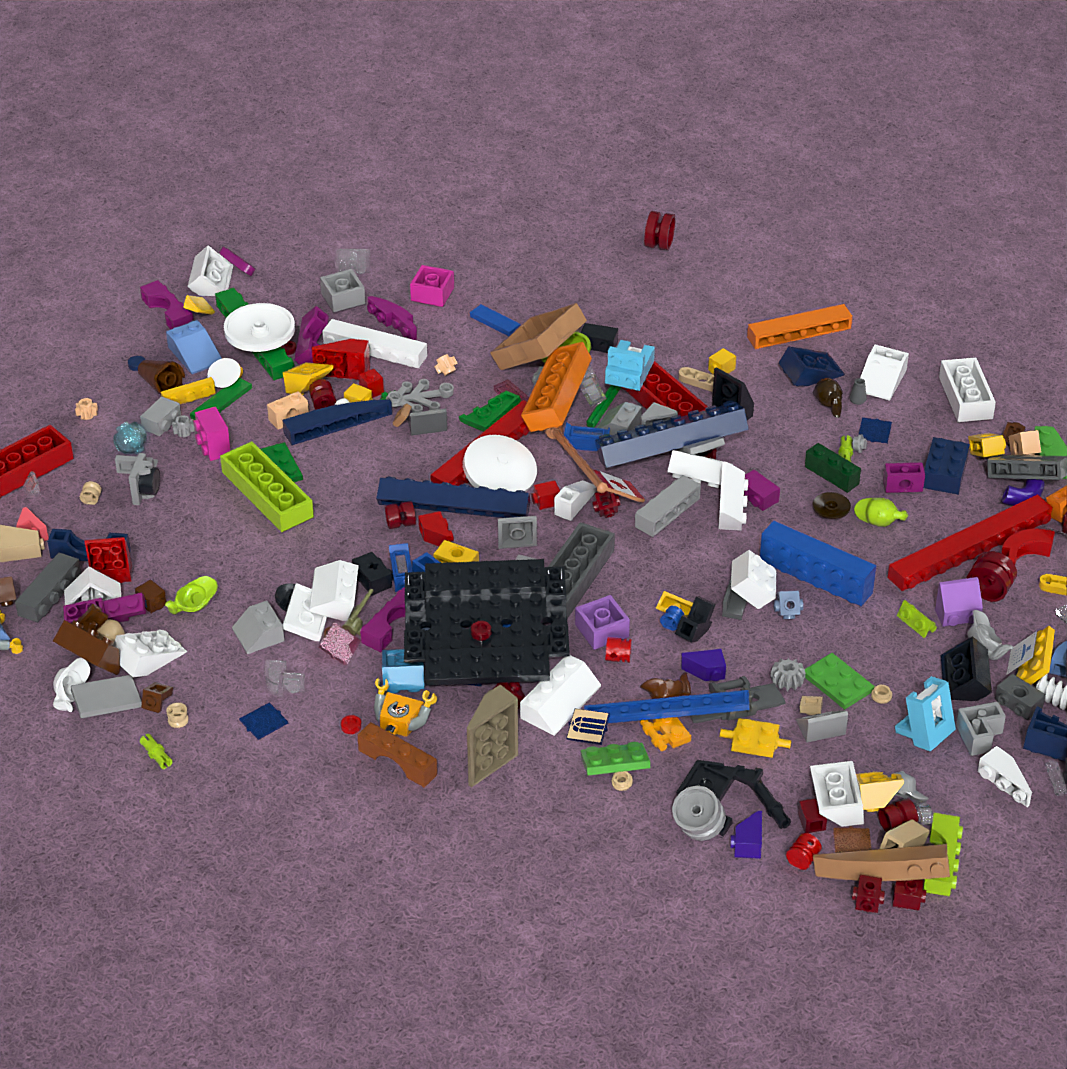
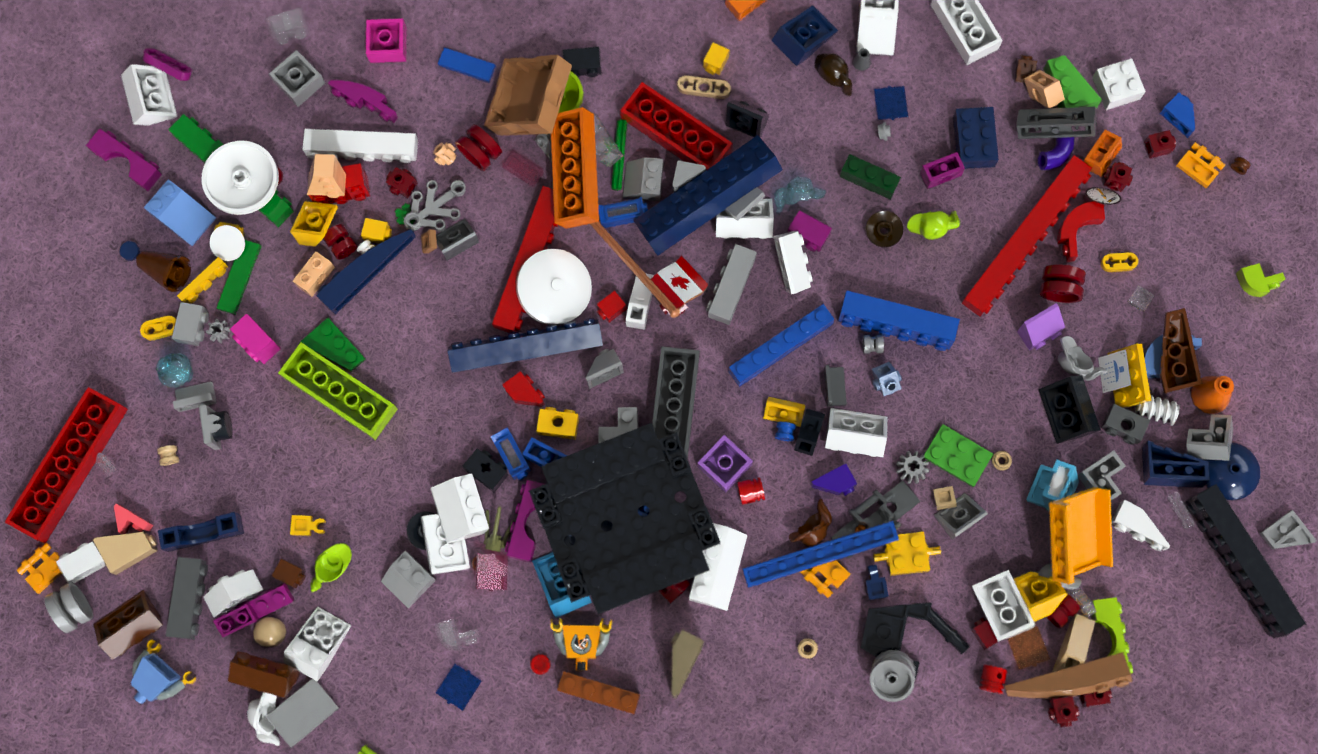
camera: 15 degrees left, 35 degrees up
(86, 409) = (104, 337): light nougat gear -> none
(93, 618) = (249, 637): reddish brown hips -> none
(110, 558) = (232, 551): red slope -> none
(130, 413) = (160, 328): none -> yellow plate
(154, 695) = (348, 695): reddish brown bracket -> none
(177, 715) = (375, 711): tan wheel -> none
(183, 569) = (304, 526): none -> yellow plate
(198, 305) = (158, 152): yellow slope -> none
(310, 330) = (288, 143): magenta arch -> none
(334, 328) = (326, 177): none -> light nougat wedge
(372, 380) = (381, 207): red brick -> none
(393, 516) = (482, 384): dark red wheel -> none
(397, 372) = (401, 182): none -> dark red brick
(478, 363) = (478, 147): none -> dark red wheel
(481, 630) = (626, 535): dark red tile -> none
(487, 415) = (515, 207): green wing -> none
(588, 726) = (755, 594): piece -> none
(615, 758) = (794, 627): bright green plate -> none
(628, 365) = (635, 124): medium azure brick -> none
(692, 557) = (781, 345): none -> blue brick
(713, 751) = (876, 586): none -> dark blue plate
(741, 637) = (856, 432): none -> white slope
(748, 837) = (940, 680): dark purple slope -> none
(753, 579) = (847, 364): white brick -> none
(758, 457) = (796, 190): none -> clear light blue hair
(782, 576) = (873, 344): none -> light grey wheel
(845, 449) = (873, 145): lime pin -> none
(916, 619) = (998, 350): lime hinge -> none
(936, 746) = (1080, 533): none -> light orange panel
(987, 444) = (1008, 100): yellow brick -> none

